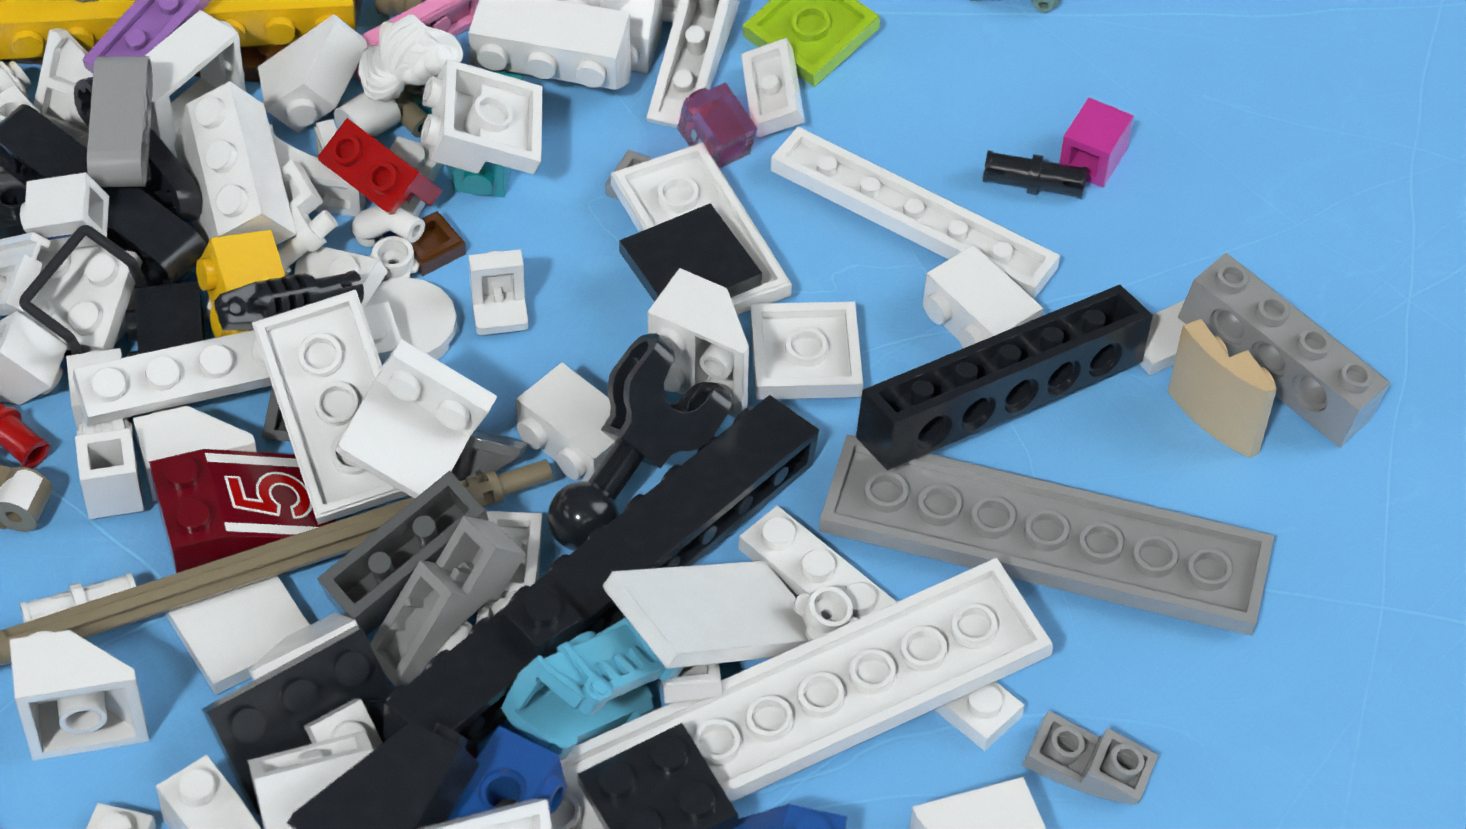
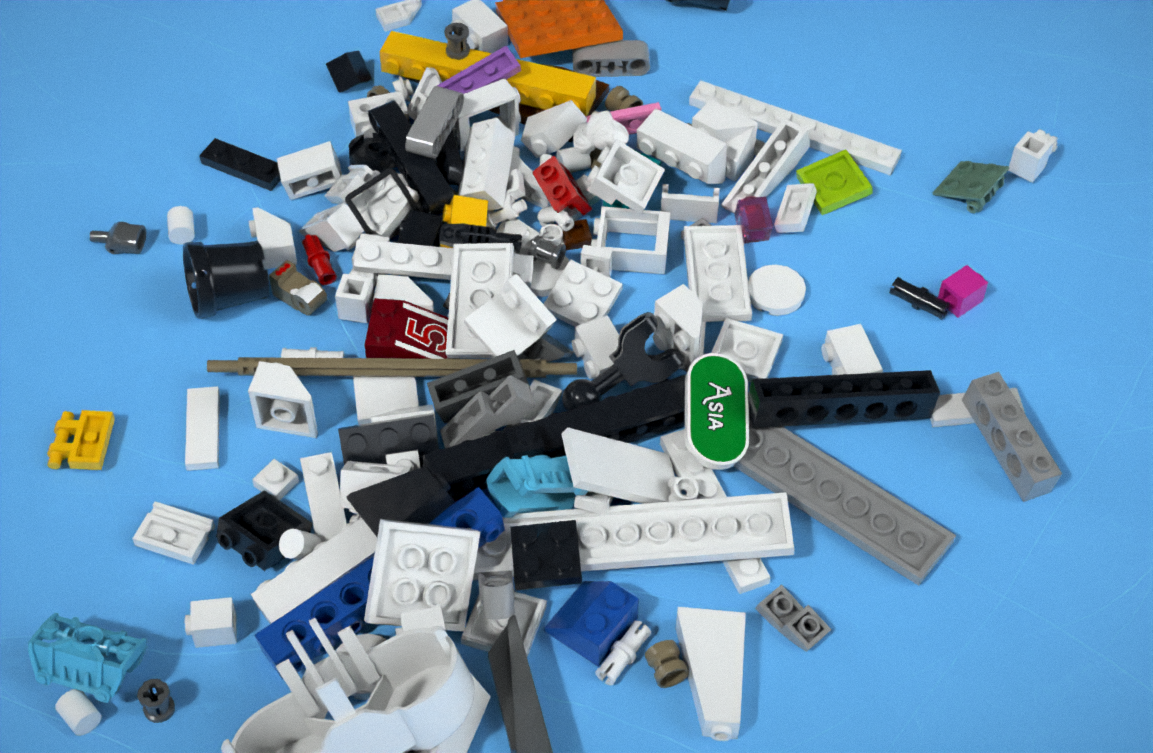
camera: 25 degrees right, 0 degrees up
(63, 204) = (388, 154): white brick -> none
(406, 286) = (547, 252): none -> dark grey bush
(499, 340) = (582, 295): none -> white plate
(521, 192) = (629, 221): none -> white window
(599, 137) = (689, 206): none -> white hinge
(695, 243) = (706, 279): black tile -> none
(806, 230) = (776, 289): none -> white tile
(819, 462) = (716, 411): none -> green tile
(909, 208) = (841, 297): white plate -> none
(1221, 392) = (963, 446): tan slope -> none

